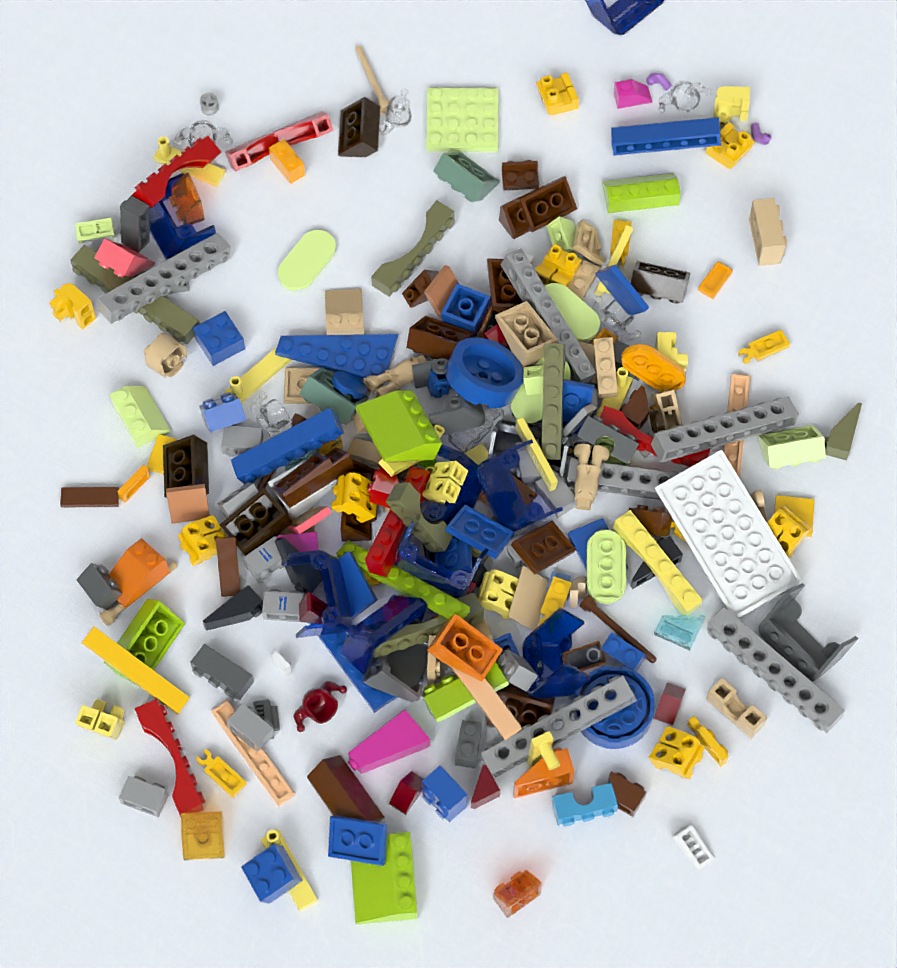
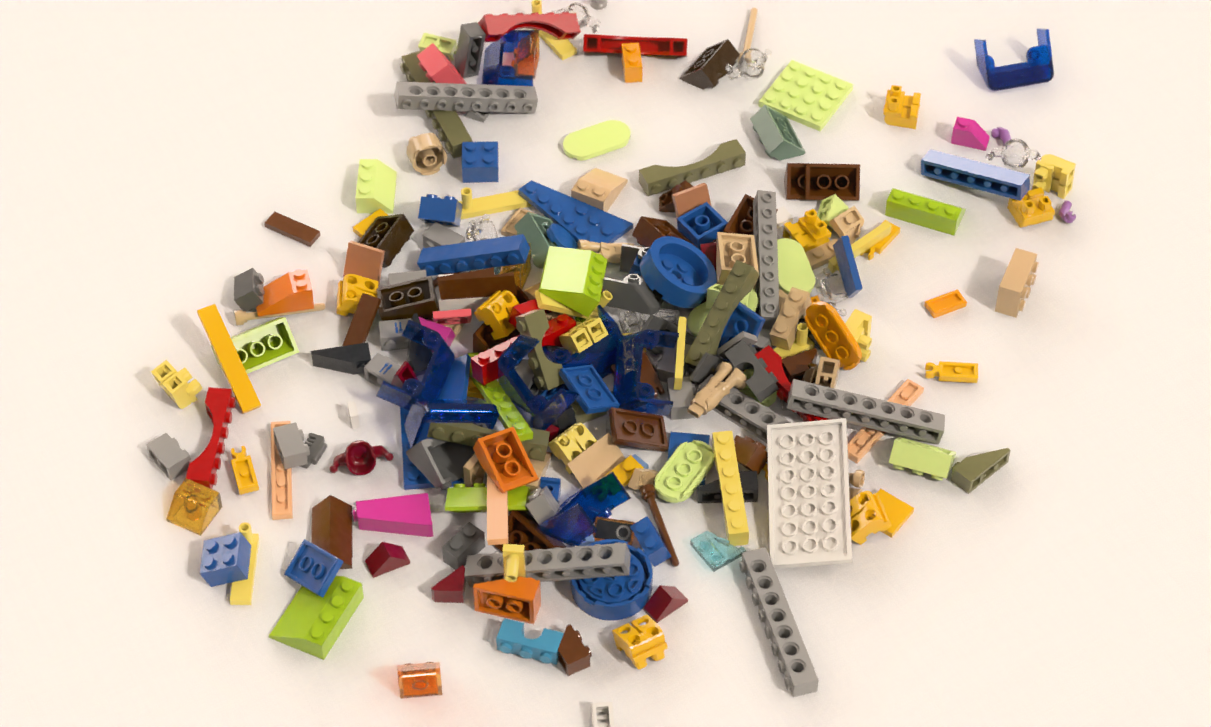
camera: 30 degrees right, 15 degrees down
(72, 303) = (380, 88): yellow hips -> none
(133, 483) = (333, 233): light orange tile -> none
(221, 672) = (299, 398): dark grey brick -> none
(444, 794) = (412, 571): blue brick -> none
(520, 175) = (825, 152): reddish brown bracket -> none
(660, 282) = (891, 282): slope -> none
(708, 740) = (677, 644): yellow plate -> none
(746, 718) = (721, 639): tan arch -> none
(795, 643) = (812, 605): dark grey windscreen -> none

